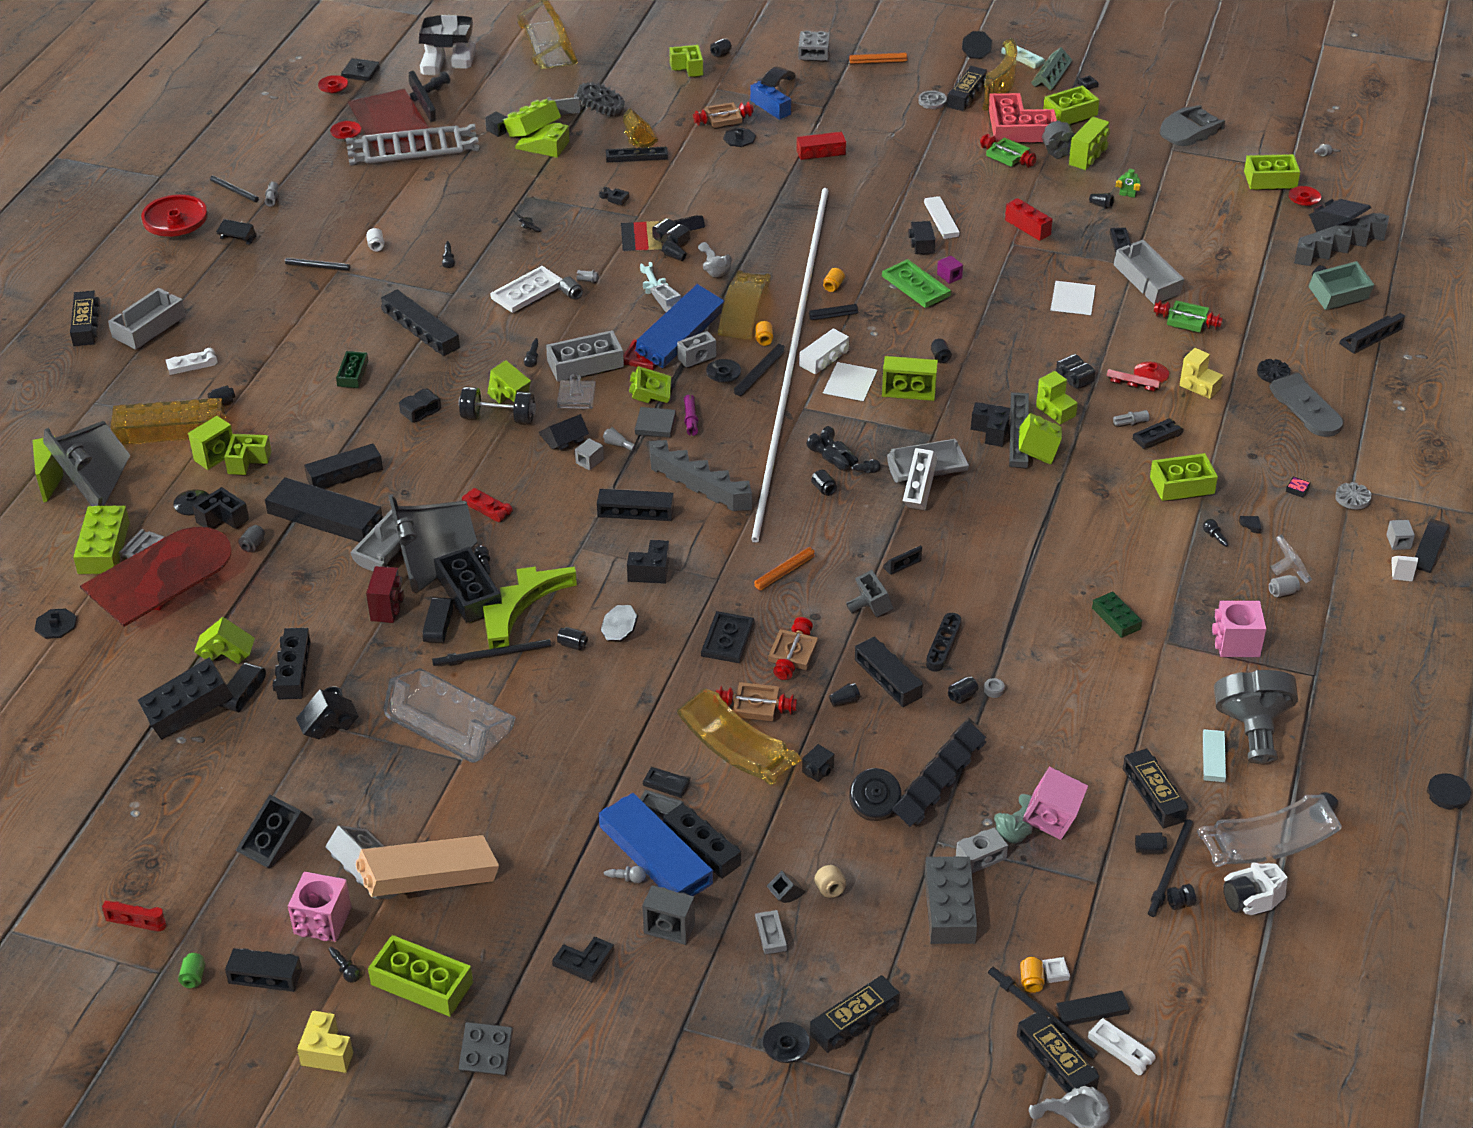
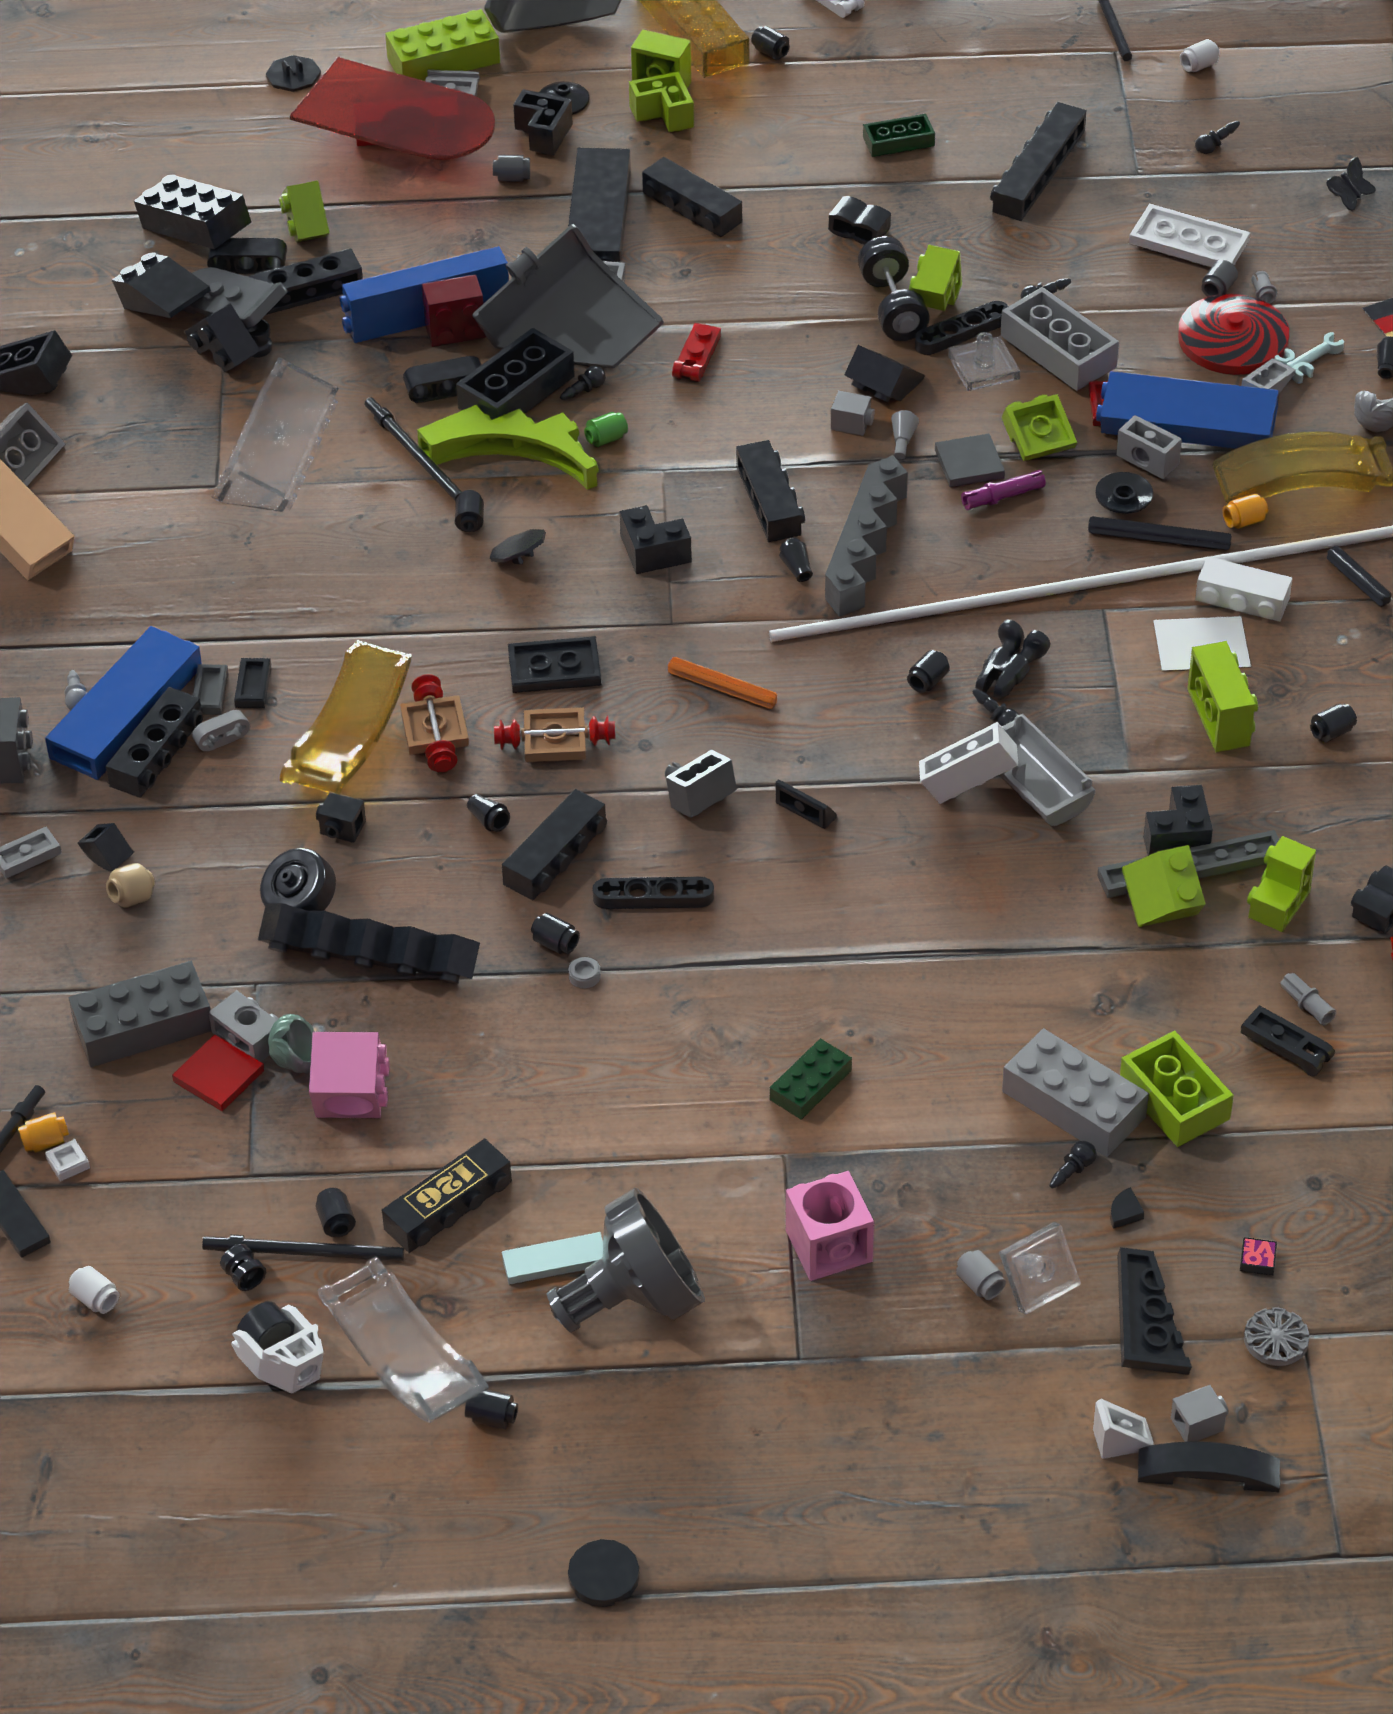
camera: 70 degrees right, 5 degrees up
(253, 734) = (158, 286): none -> black slope
(286, 701) = (247, 295): none -> dark grey piece
(355, 612) = (395, 299): none -> blue brick
(534, 558) = (605, 428): none -> bright green brick
(540, 393) = (933, 339): none -> black beam
(615, 298) = (1232, 333): none -> dish
(698, 509) = (796, 558): none -> black cone
(708, 804) = (221, 730): none -> light grey beam
(1009, 876) = (218, 1072): none -> red tile
(1169, 515) = (1075, 1092): none -> light grey brick
(1176, 975) = (93, 1289): none -> white brick
(1342, 539) = (1146, 1318): none -> black wing

